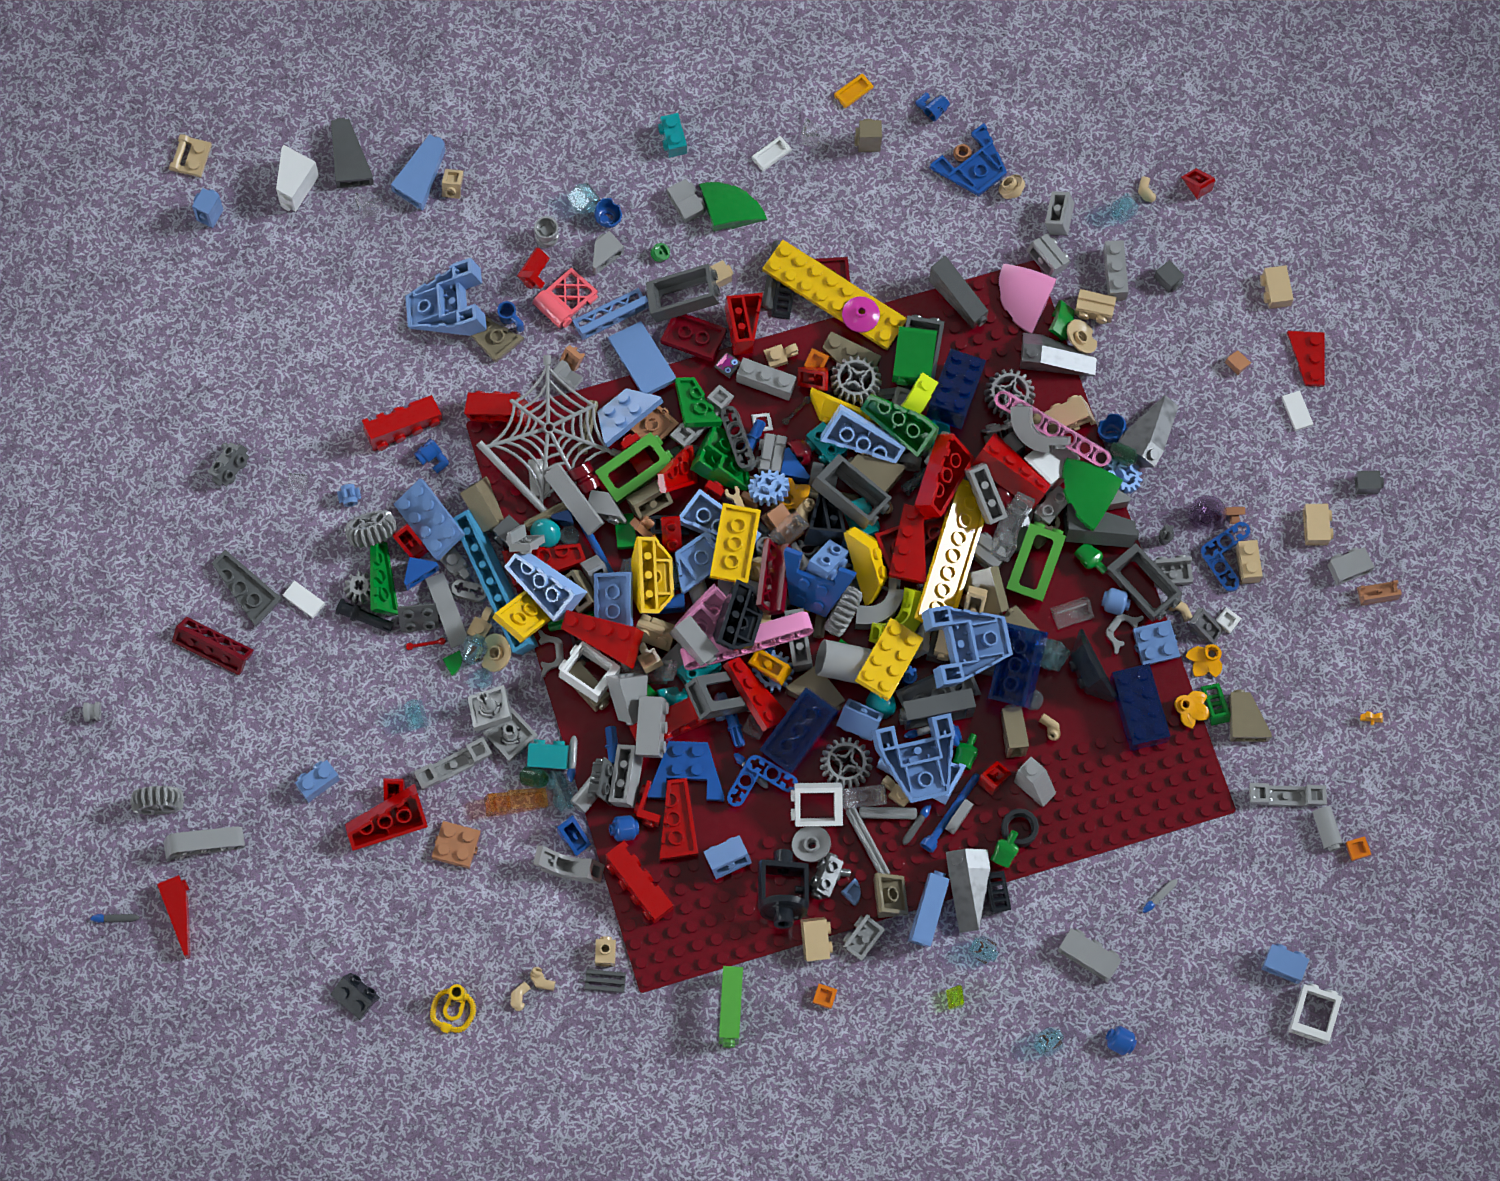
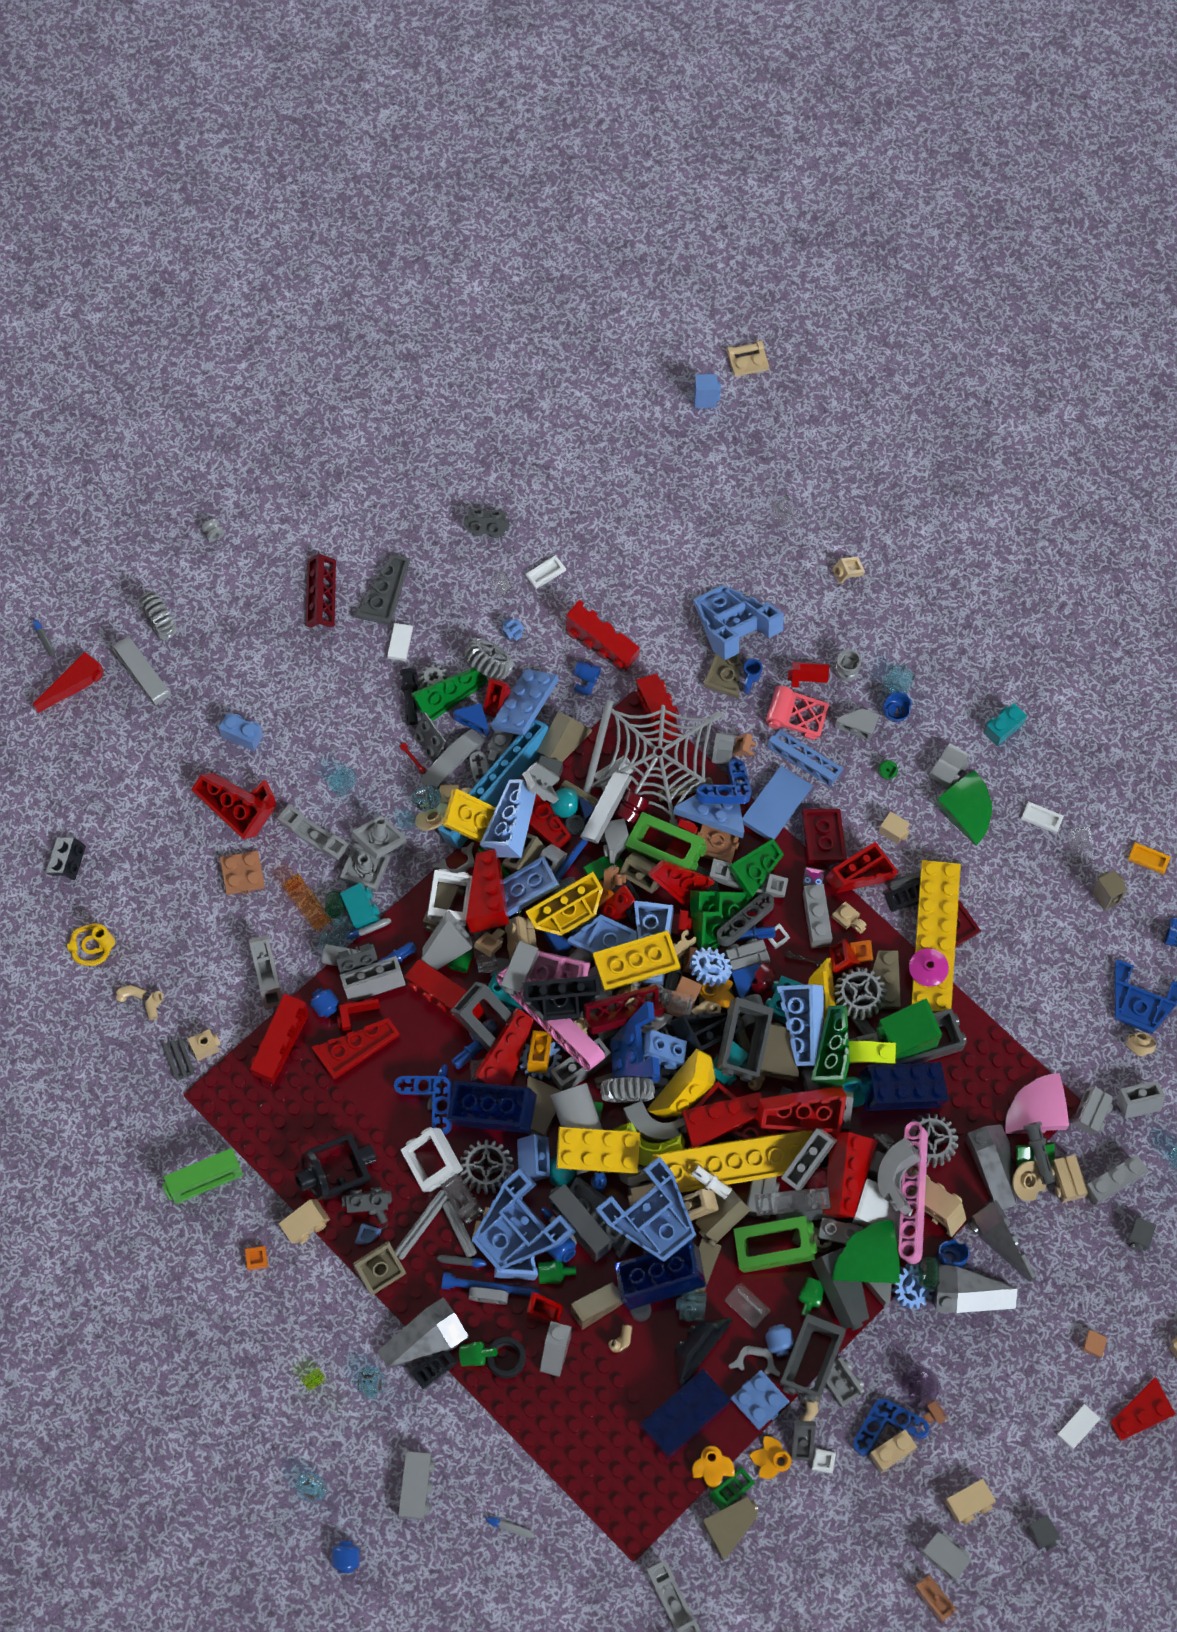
camera: 65 degrees right, 5 degrees down
(295, 178) = (771, 442): white slope -> none
(305, 439) = (545, 572): none -> white tile
(349, 159) = (821, 475): dark grey slope -> none
(419, 174) = (842, 538): medium blue slope -> none
(453, 662) = (406, 788): green tile -> none
(573, 835) = (298, 964): blue slope -> none
(612, 385) = (705, 793): none -> blue beam
(651, 727) = (424, 974): light grey brick -> none
(672, 695) = (466, 978): teal hair -> none
(678, 282) = (851, 783): dark grey piece -> none
(687, 761) = (416, 1028): blue wing -> none
(727, 857) = (341, 1104): medium blue brick -> none
(811, 836) = (395, 1166): light grey dish -> none
(863, 937) = (329, 1264): light grey bracket -> none
(929, 909) = (381, 1310): medium blue slope -> none
(957, 292) = (1002, 1043): dark grey slope -> none
(962, 147) = (1152, 979): nougat plate -> none
(962, 582) = (711, 1182): none -> white pin
(1058, 311) = (1038, 1143): none -> dark grey pin
(1108, 385) = (993, 1229): none -> flat silver wedge
(1166, 534) = (874, 1356): dark grey axle -> none

